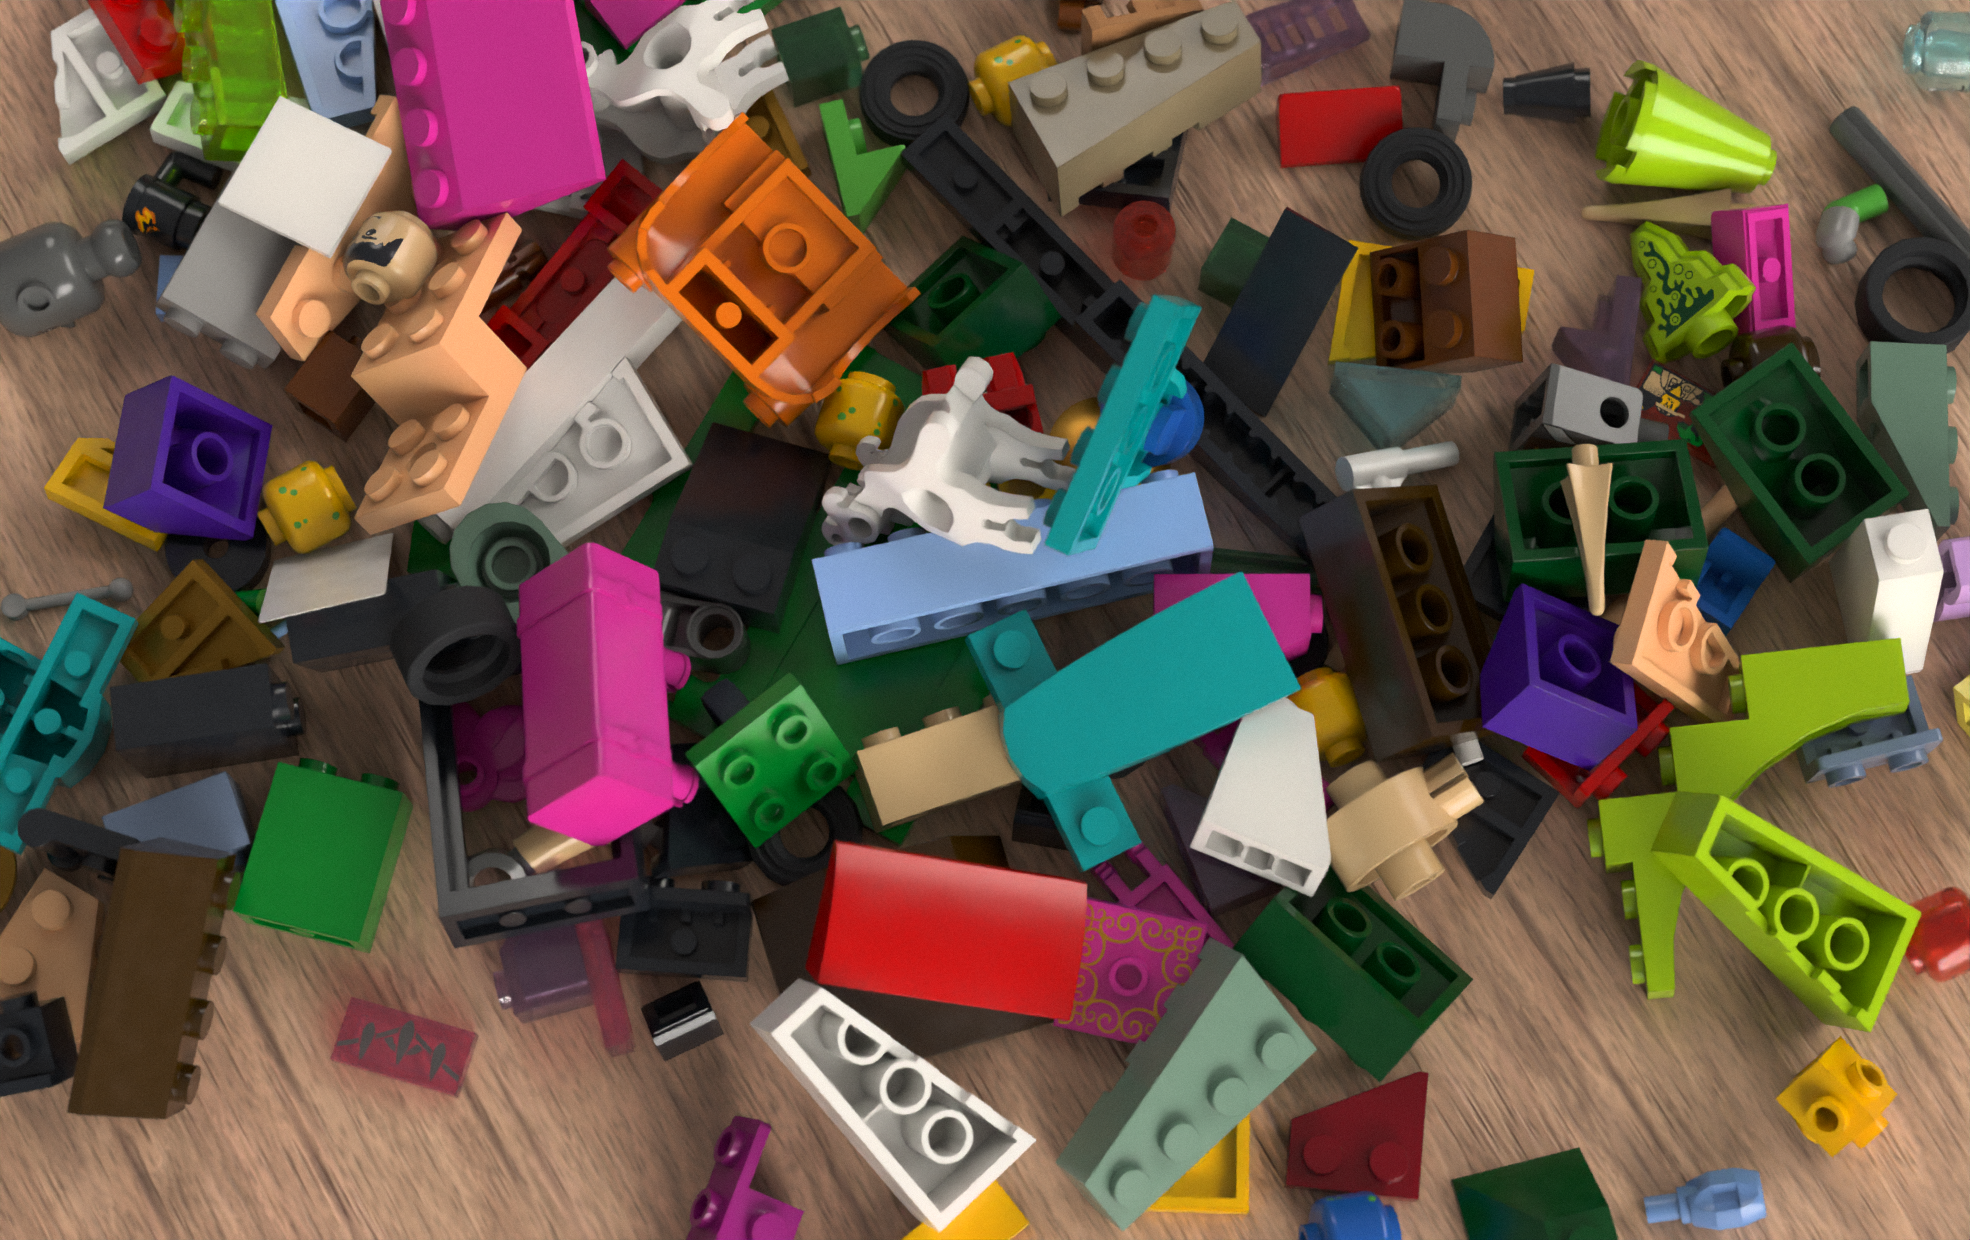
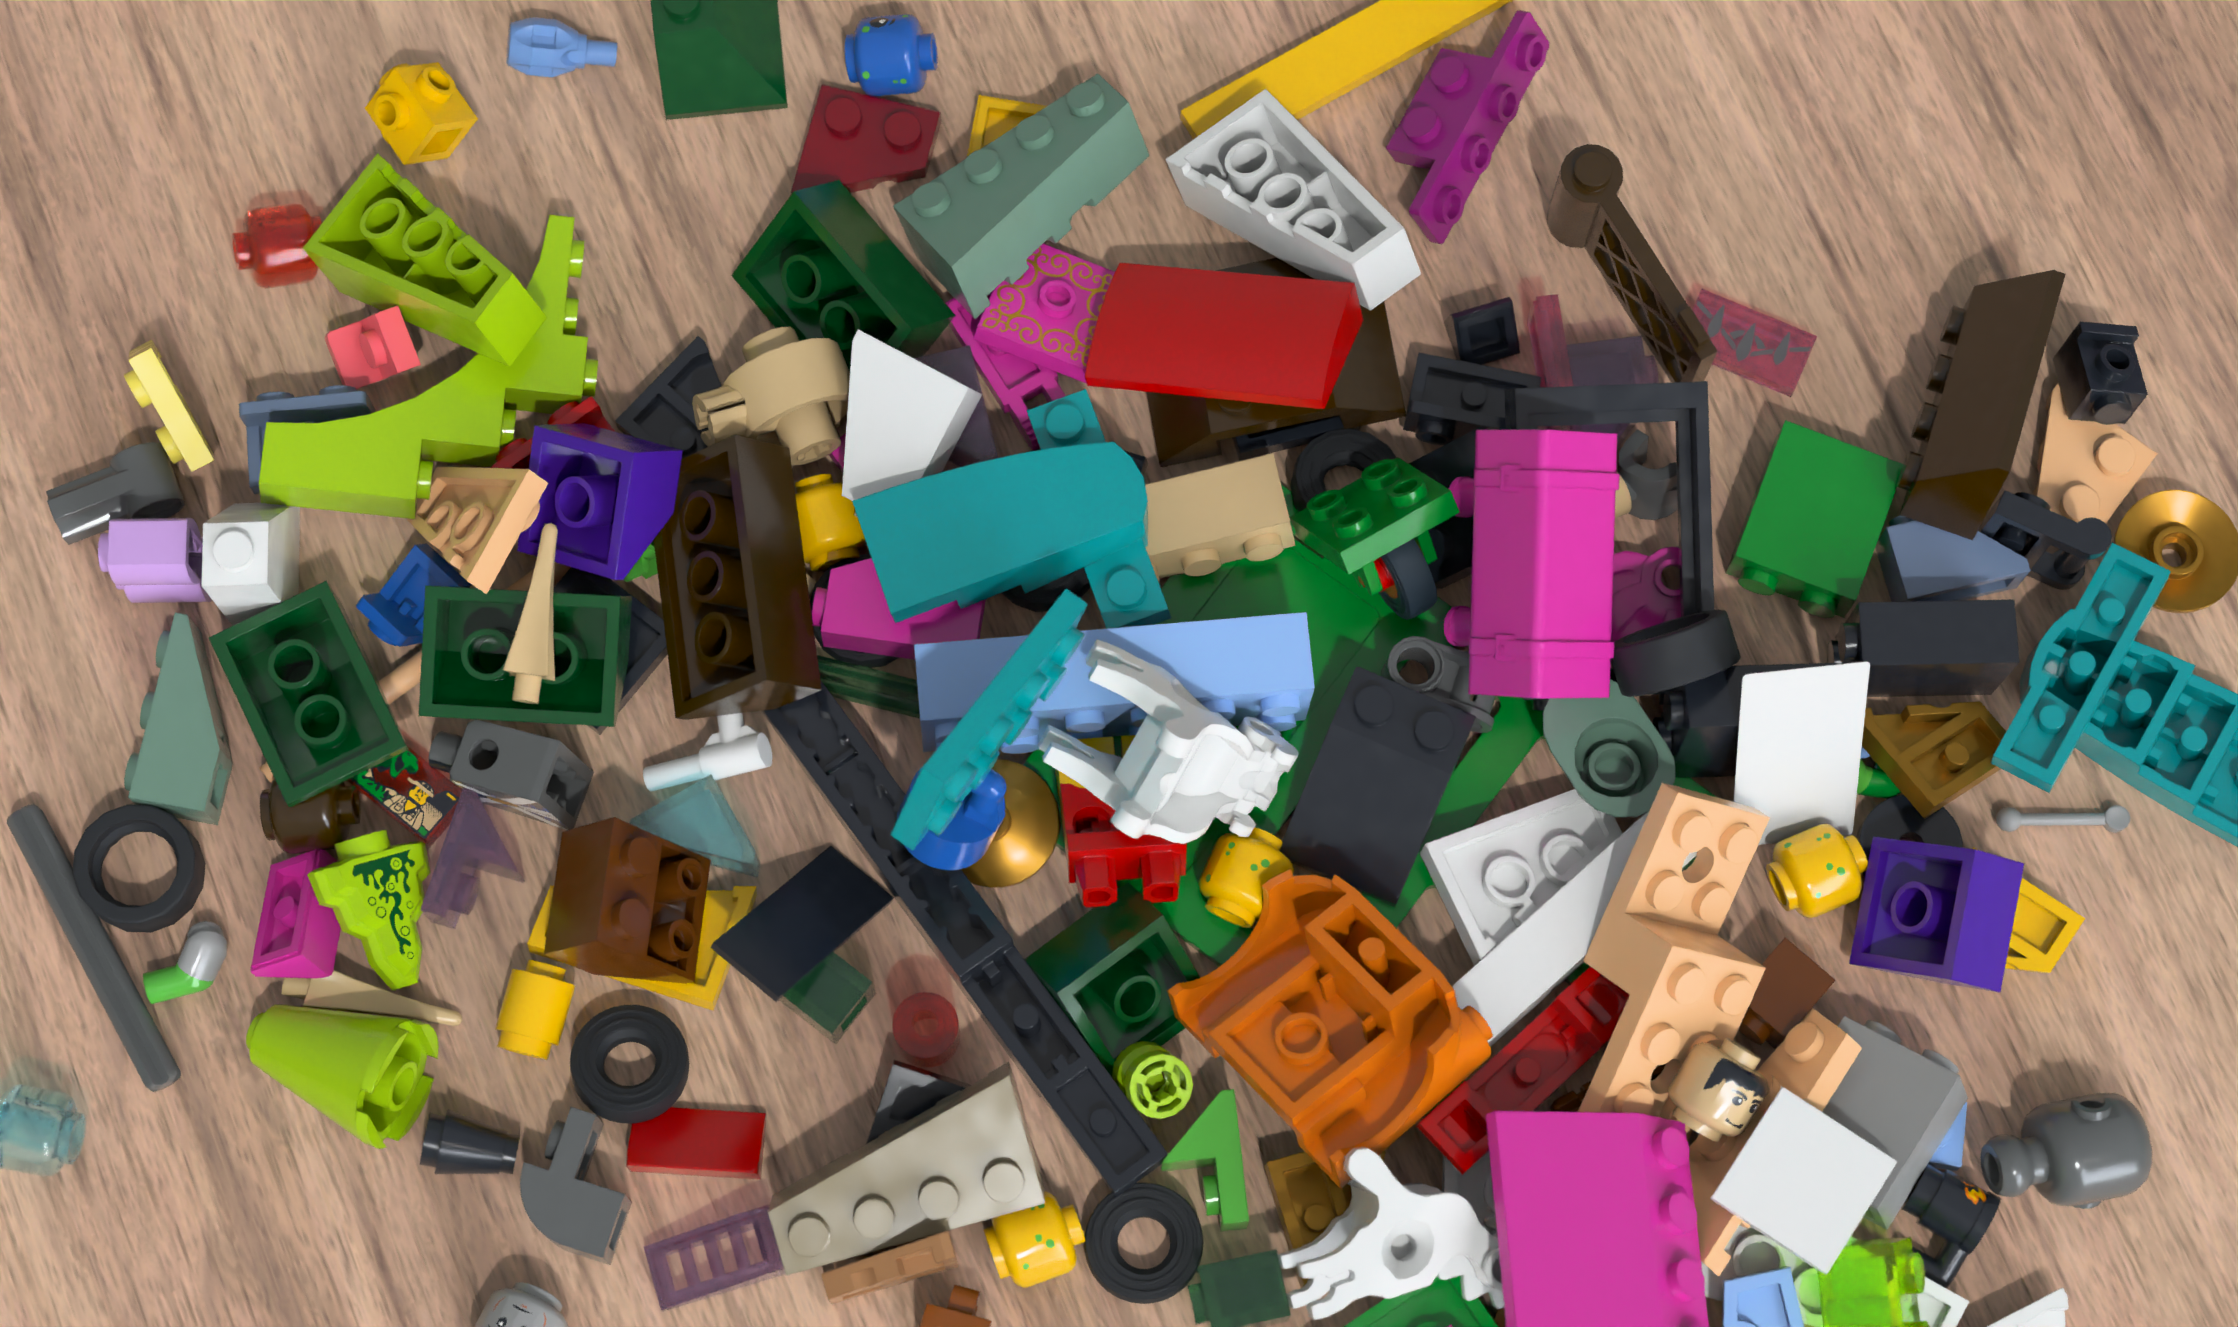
camera: 175 degrees left, 0 degrees up
(577, 1151) = (1591, 216): none -> dark brown piece
(925, 225) = (1140, 1071): none -> lime wheel
(1519, 210) = (534, 1010): none -> yellow brick
(1827, 828) = (372, 349): none -> coral bracket

